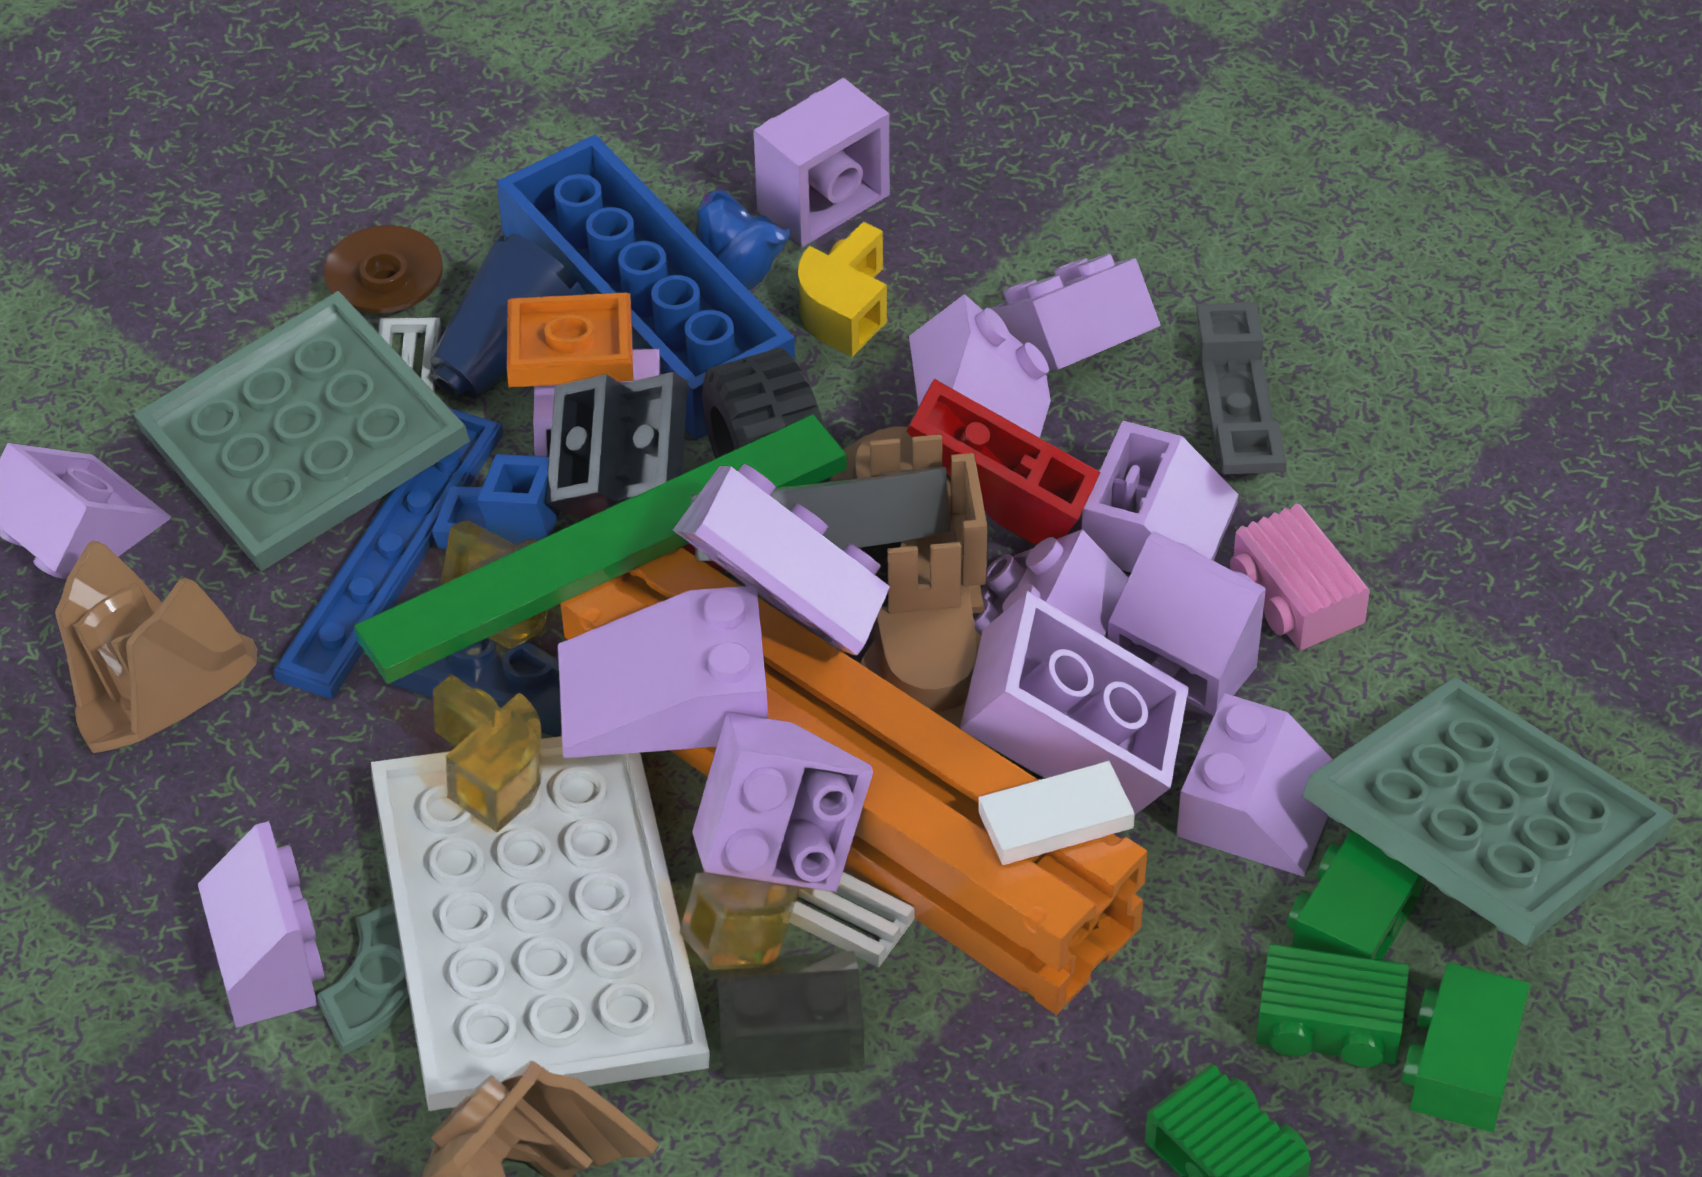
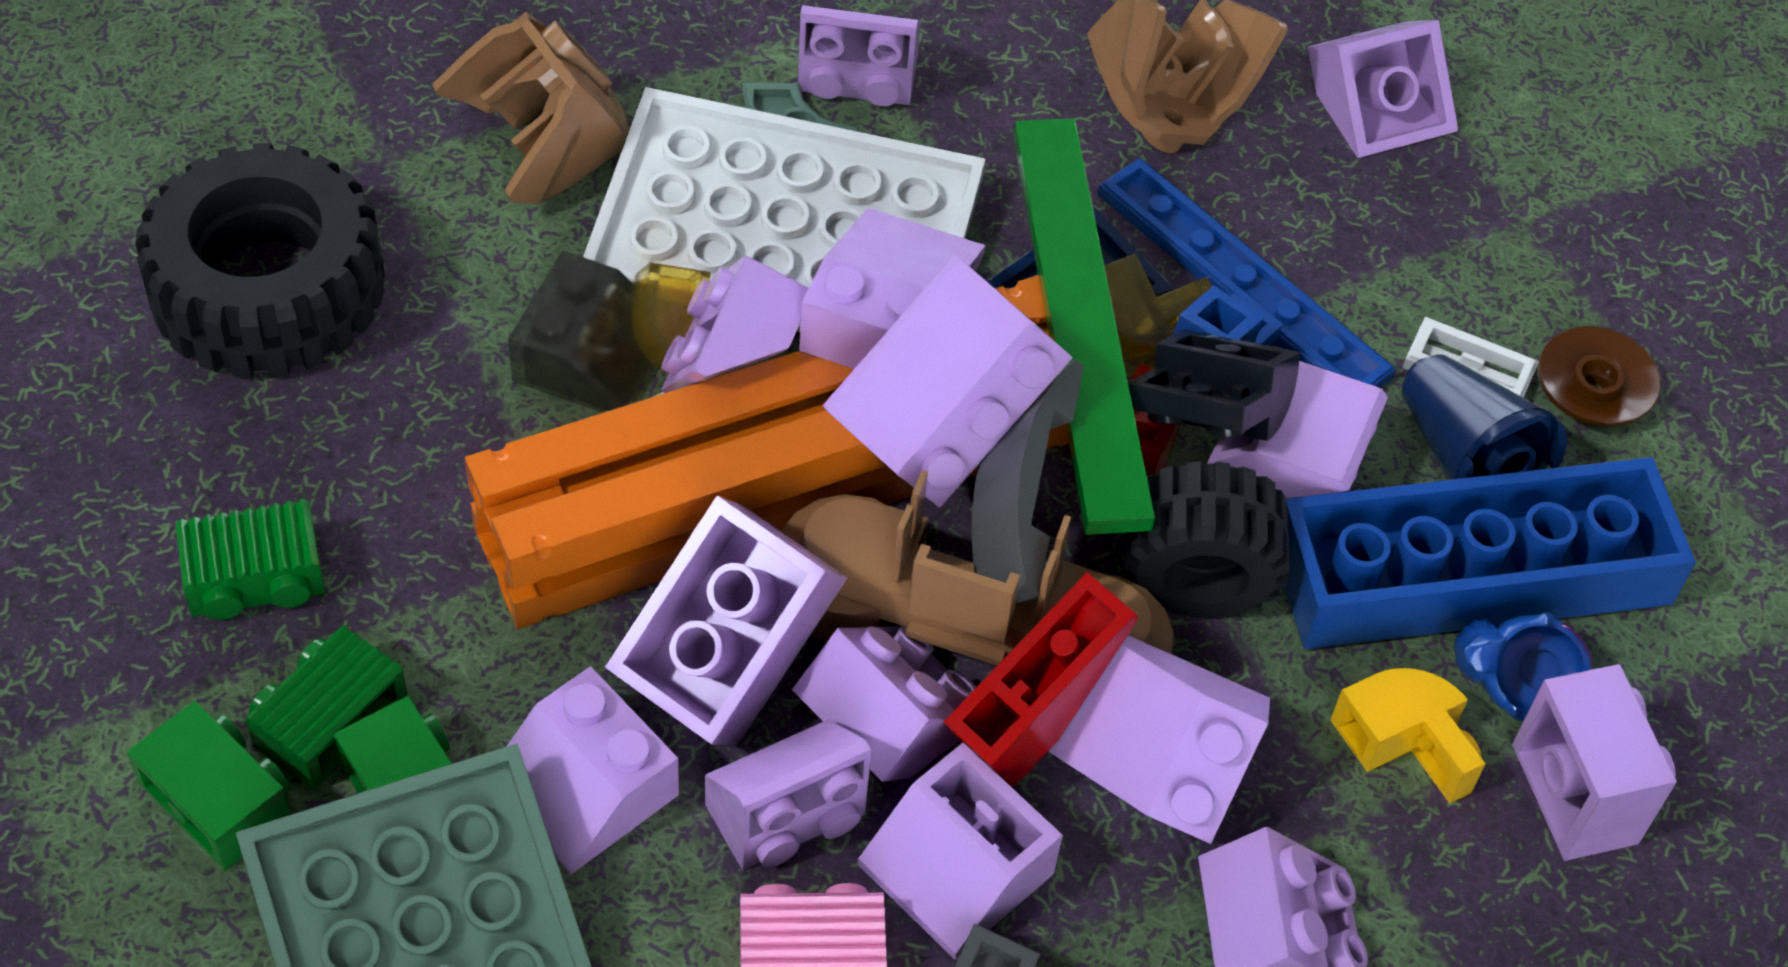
camera: 110 degrees right, 5 degrees up
(301, 429) = (1406, 249): sand green plate -> none
(496, 752) = (918, 196): clear yellow brick -> none
(569, 339) = (1379, 411): orange tile -> none
(1056, 812) = (582, 501): white tile -> none

